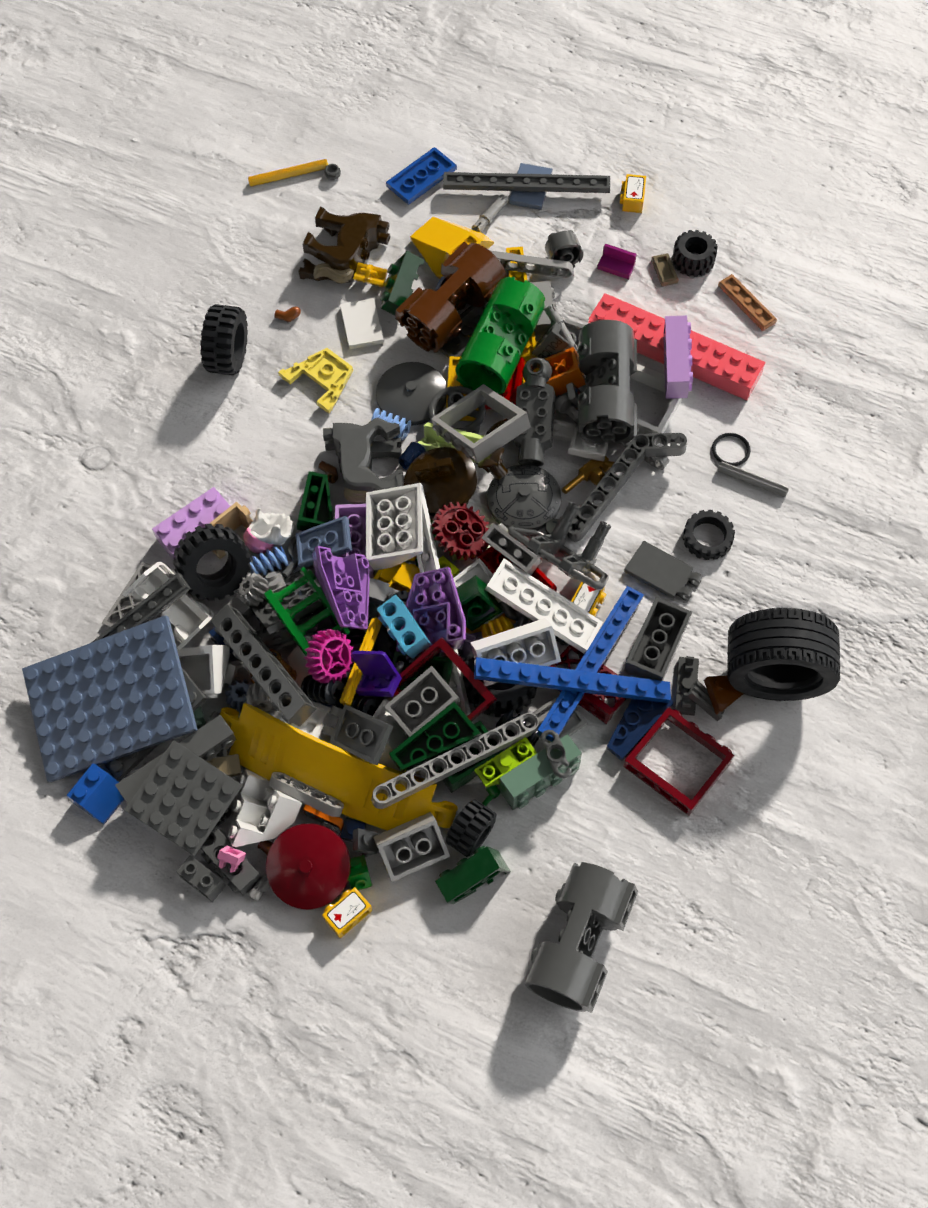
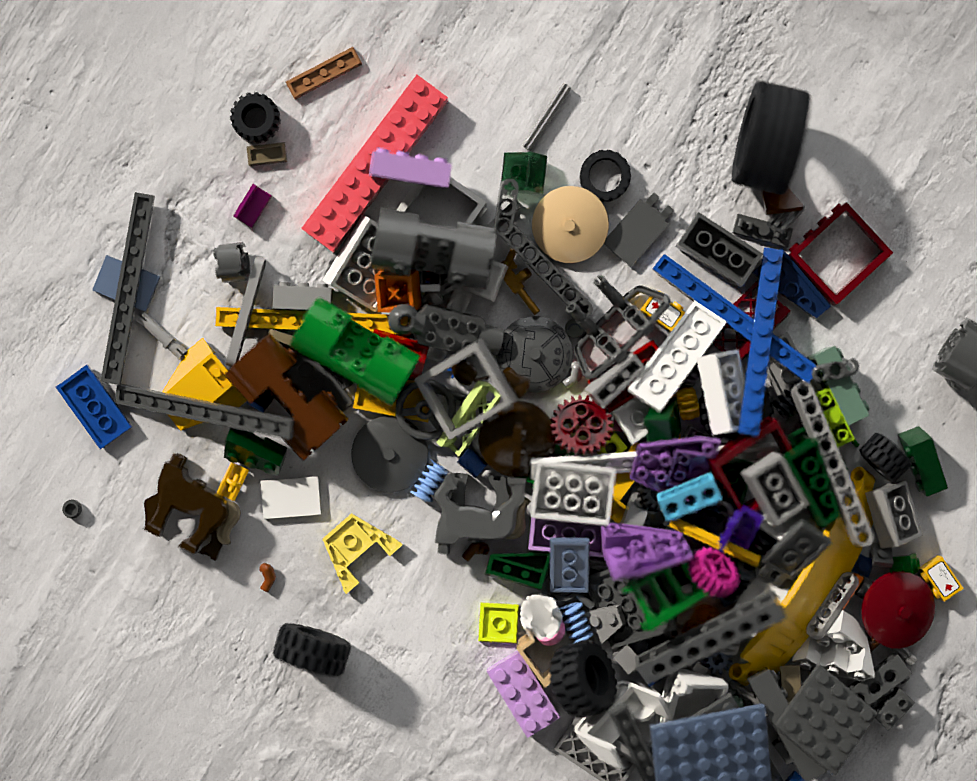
camera: 85 degrees left, 25 degrees up
(232, 856) = (884, 679): bright pink tile -> none
(252, 589) = (615, 640): light grey gear -> none
(263, 496) = (498, 622): none -> neon yellow tile
(287, 172) = (64, 560): yellow axle -> none
(429, 240) = (205, 411): none -> dark grey plate
(550, 343) = (361, 301): dark grey panel -> none
(554, 317) = (341, 287): light grey pin -> none
(633, 193) = (158, 169): brick -> none
(654, 509) = (570, 224): none -> tan dish
(696, 466) = (526, 169): none -> clear green slope
(733, 435) = (523, 133): black tyre -> none

